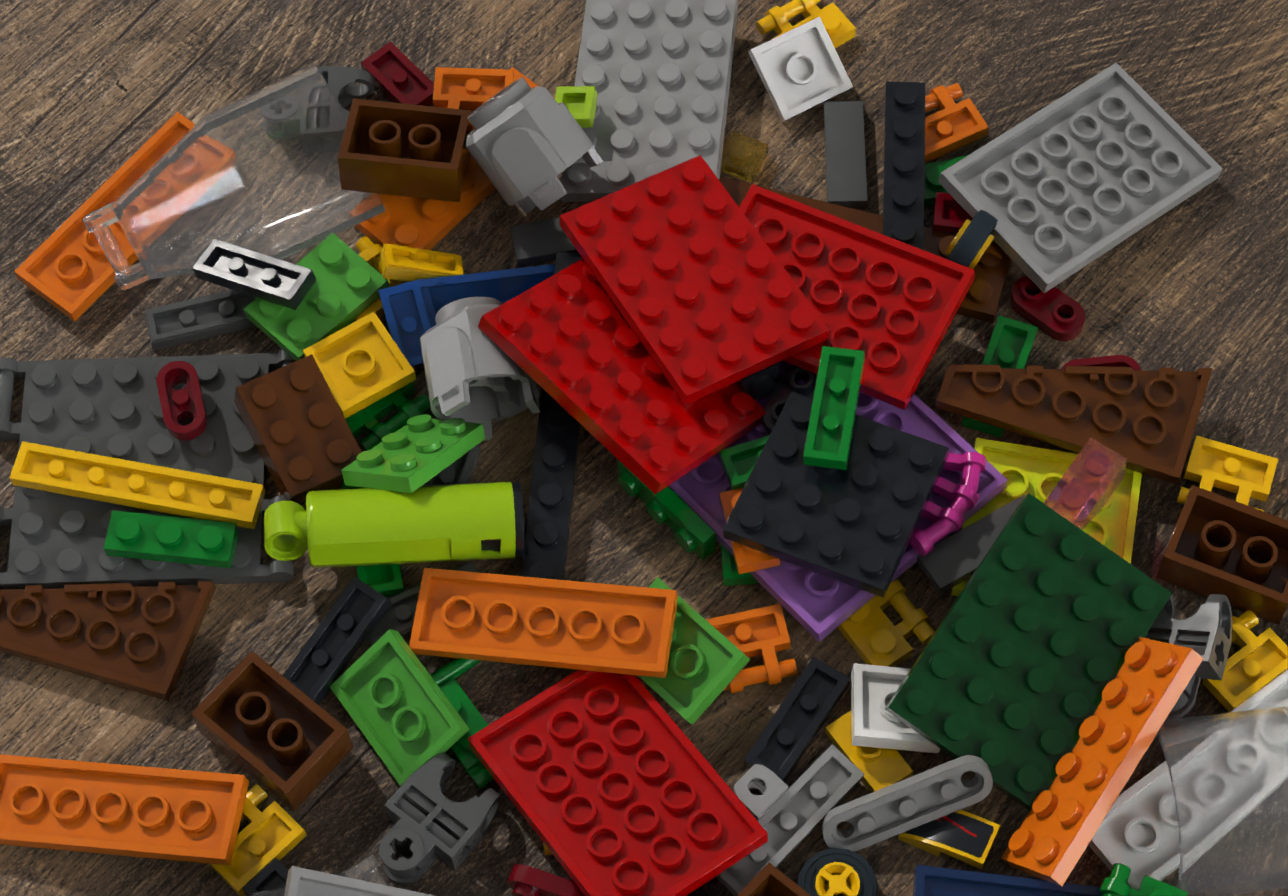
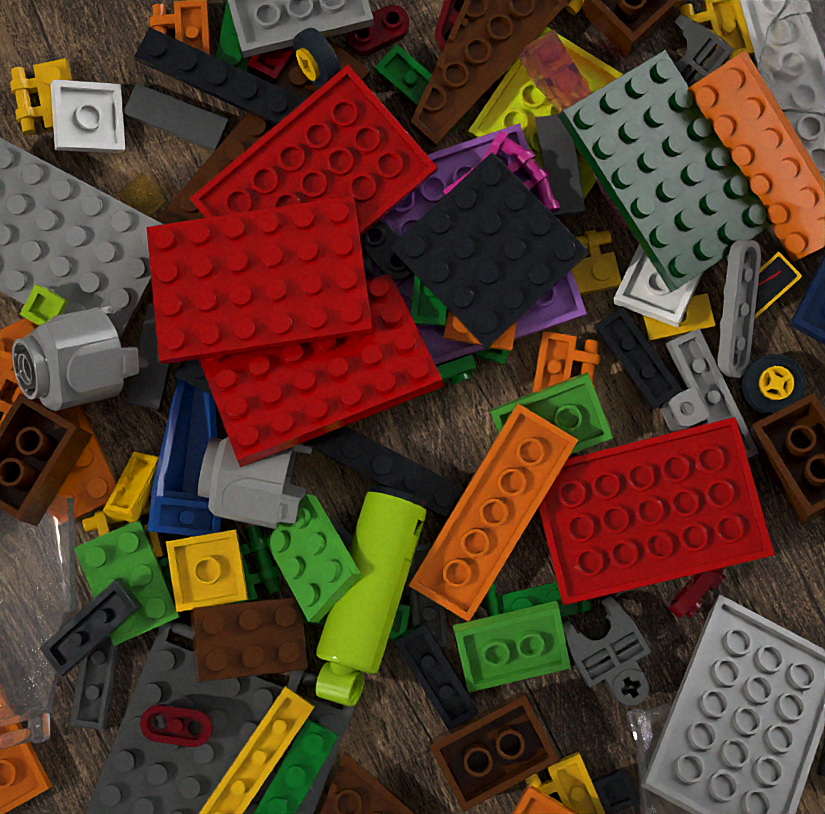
camera: 70 degrees left, 20 degrees up
(834, 408) = (428, 220): green plate -> none

